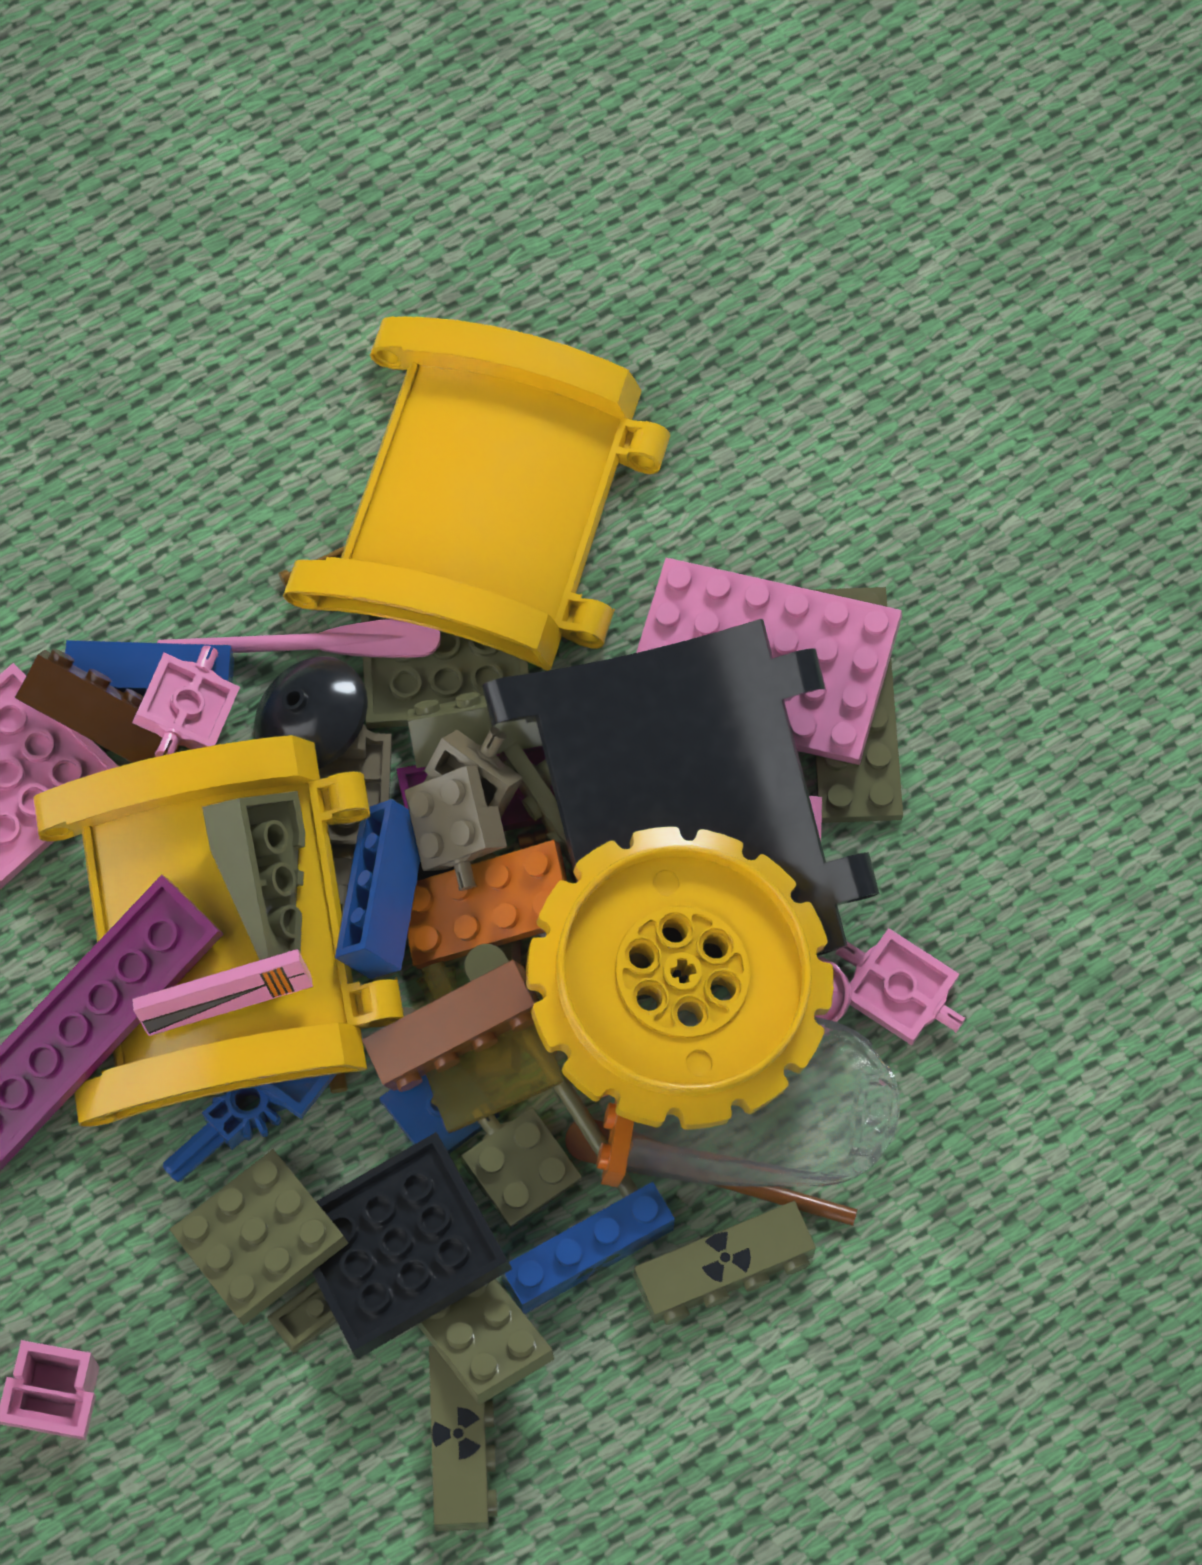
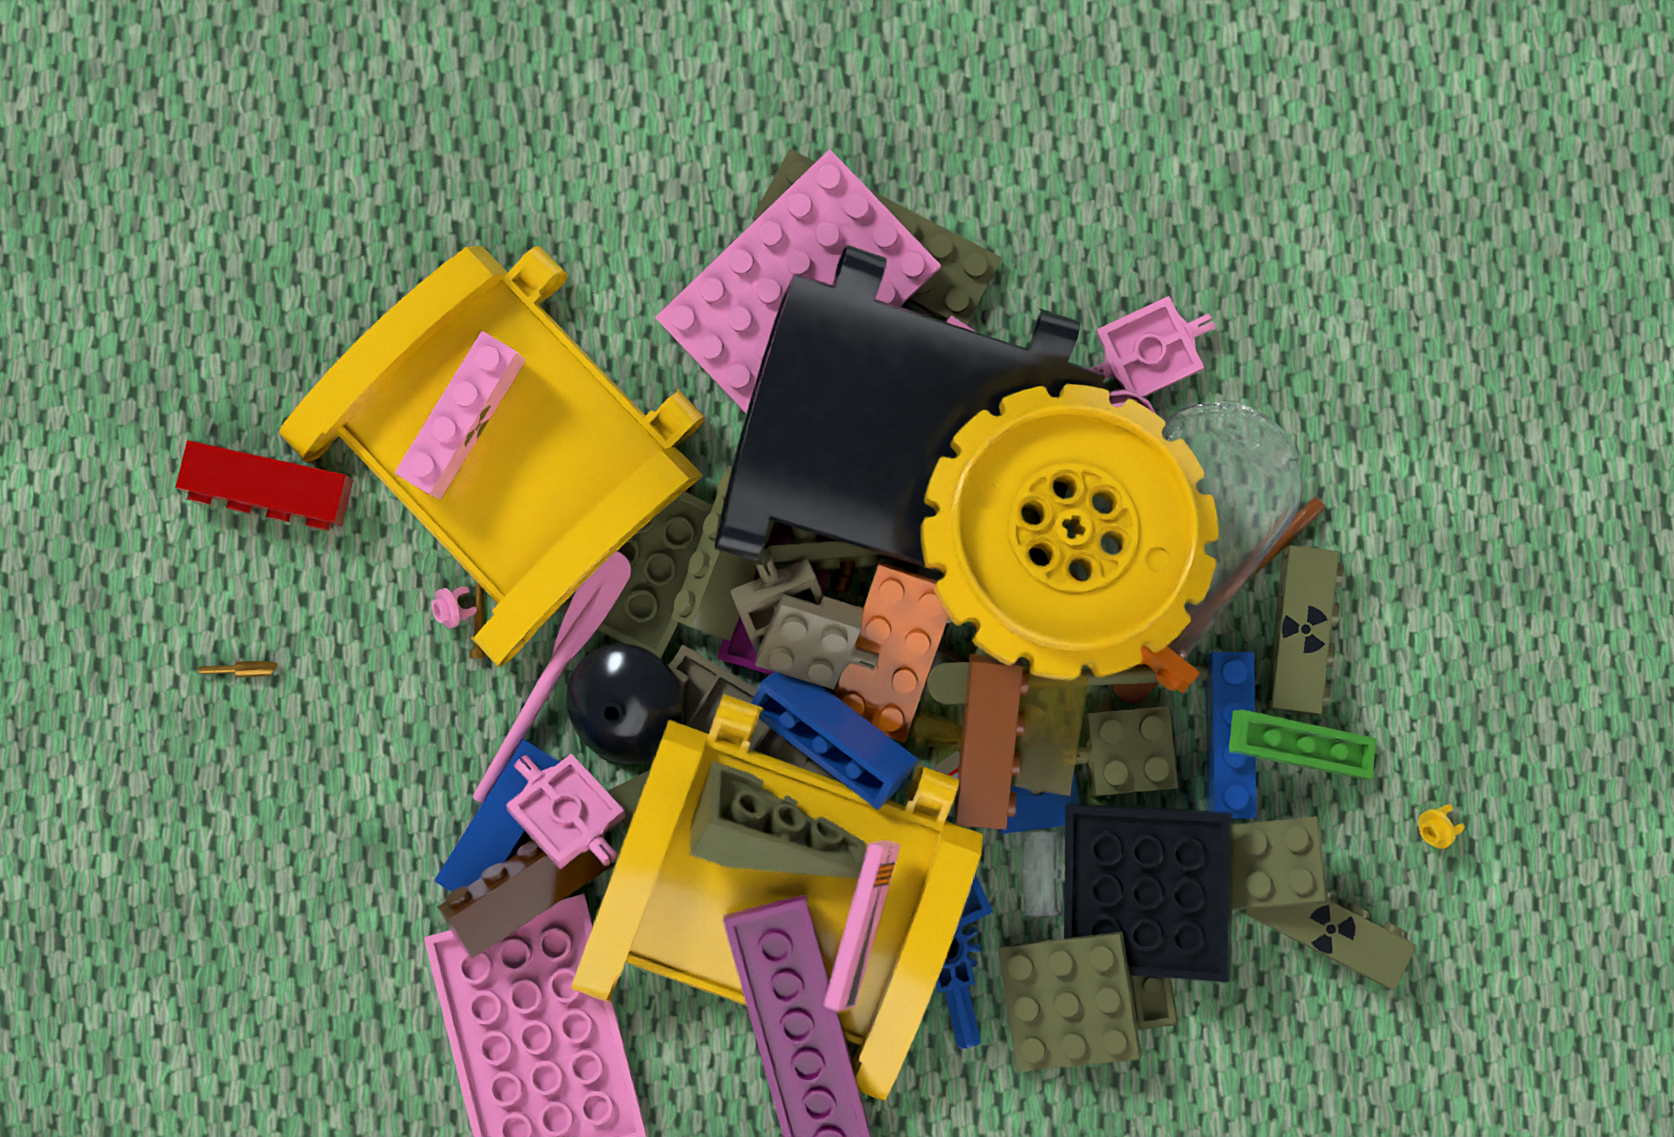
camera: 60 degrees left, 15 degrees up
(164, 403) = (242, 669): none -> pearl gold piece
(309, 532) = (446, 607): none -> bright pink plate
(332, 334) = (264, 484): none -> red brick
(362, 1150) = (1041, 874): none -> clear pin
(478, 438) = (460, 415): none -> bright pink brick
(611, 1489) = (1437, 828): none -> yellow plate
(615, 1311) = (1302, 744): none -> bright green plate

